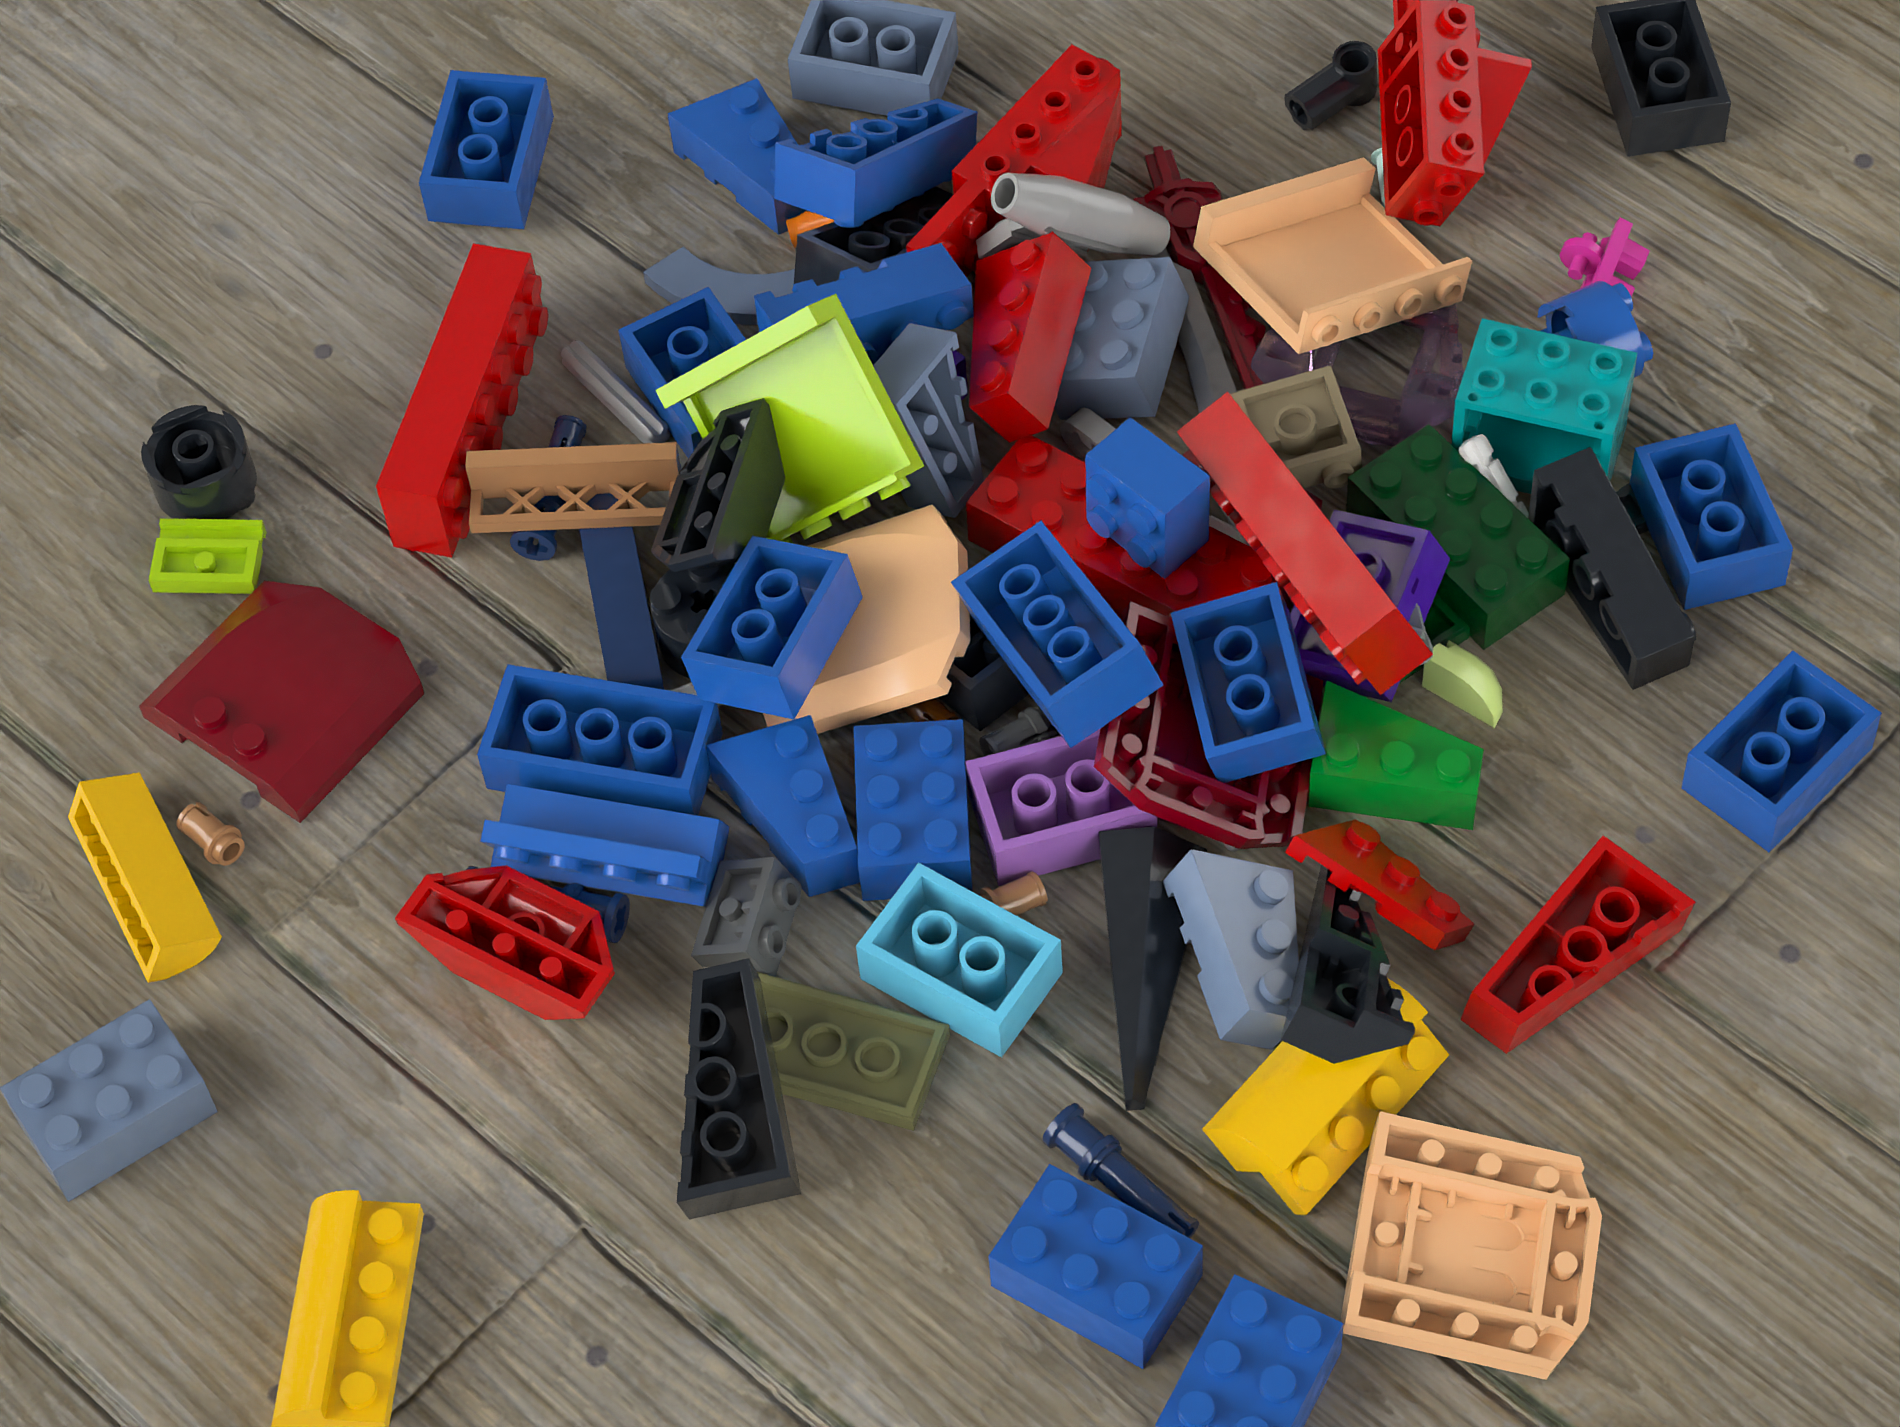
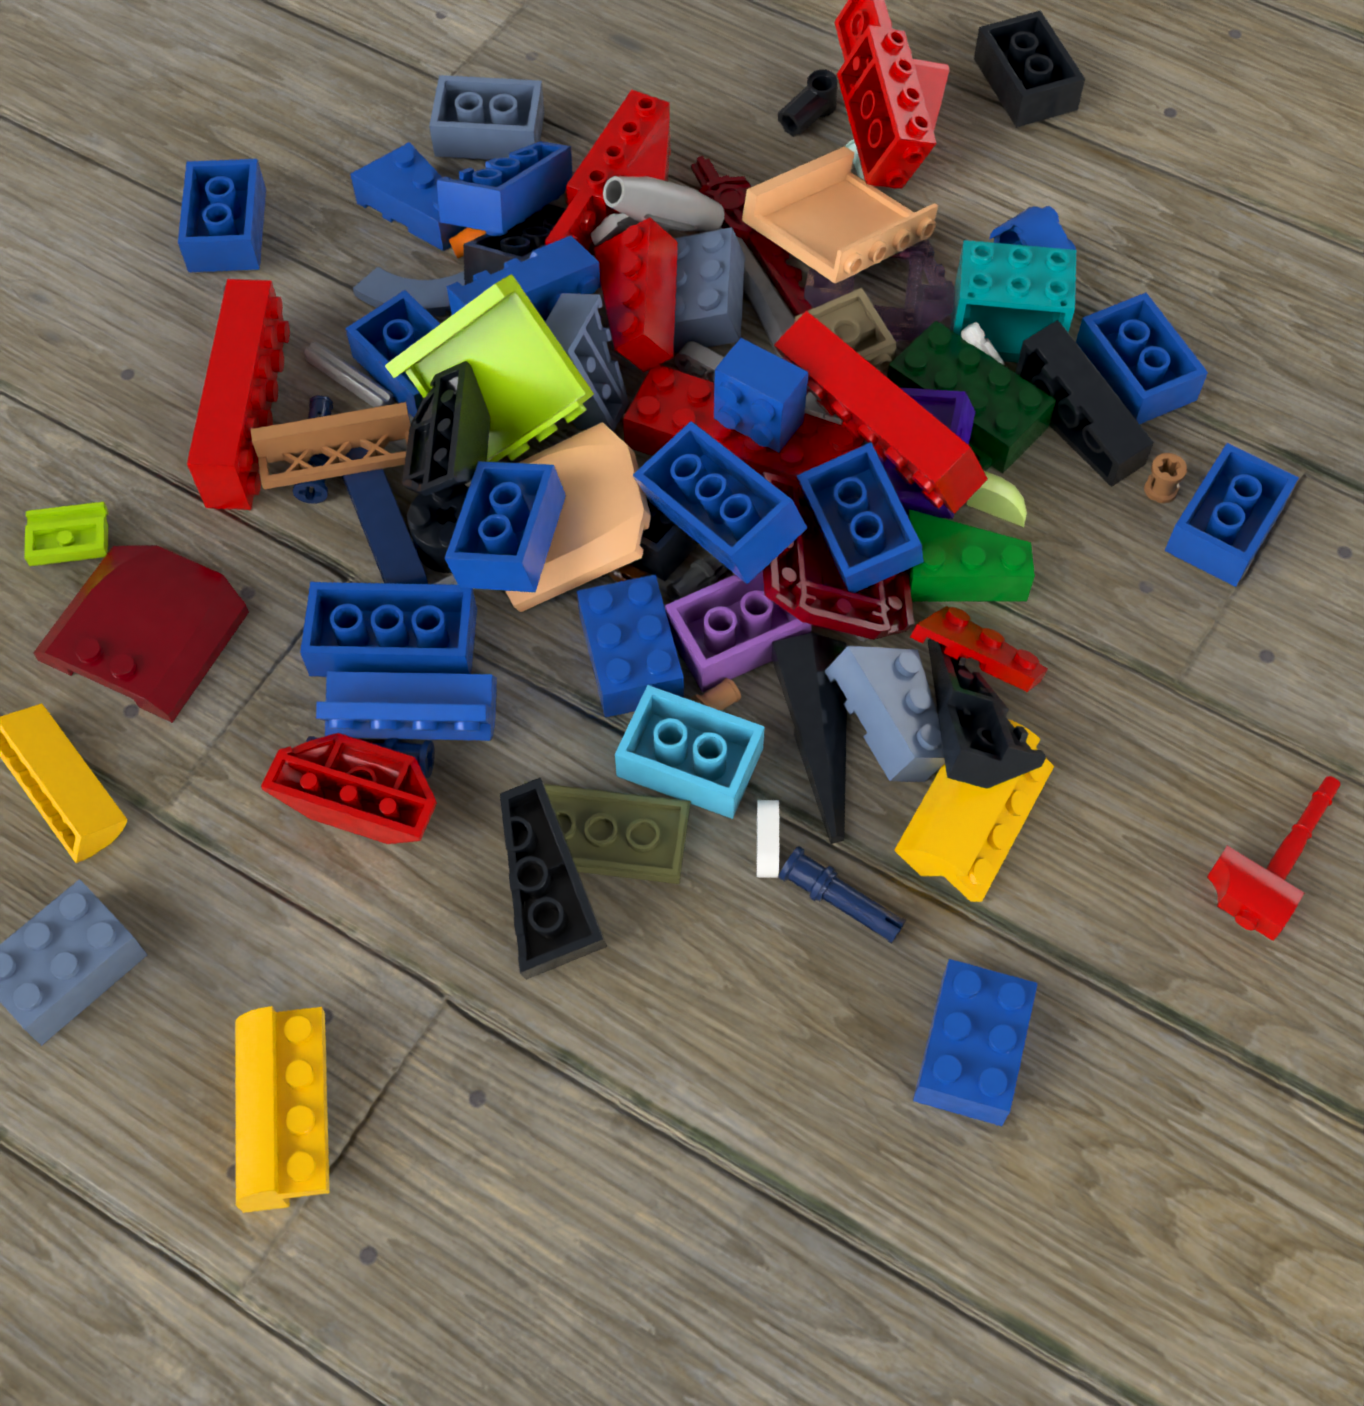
camera: 15 degrees left, 5 degrees up
(199, 464) = (48, 467): black brick -> none
(219, 841) = (112, 746): medium nougat pin -> none
(748, 914) = (524, 742): dark grey bracket -> none
(791, 799) = (541, 652): blue wedge -> none
(1039, 1088) = (767, 839): none -> white beam
(1096, 1265) = (840, 966): blue brick -> none
(1471, 1247) = (1106, 908): light nougat wedge -> none
(1581, 939) = (1130, 664): red wedge -> none
(1600, 260) = (1020, 195): dark pink hips -> none
(1687, 1267) = (1260, 895): none -> red piece
(1706, 682) = (1166, 474): none -> medium nougat bush

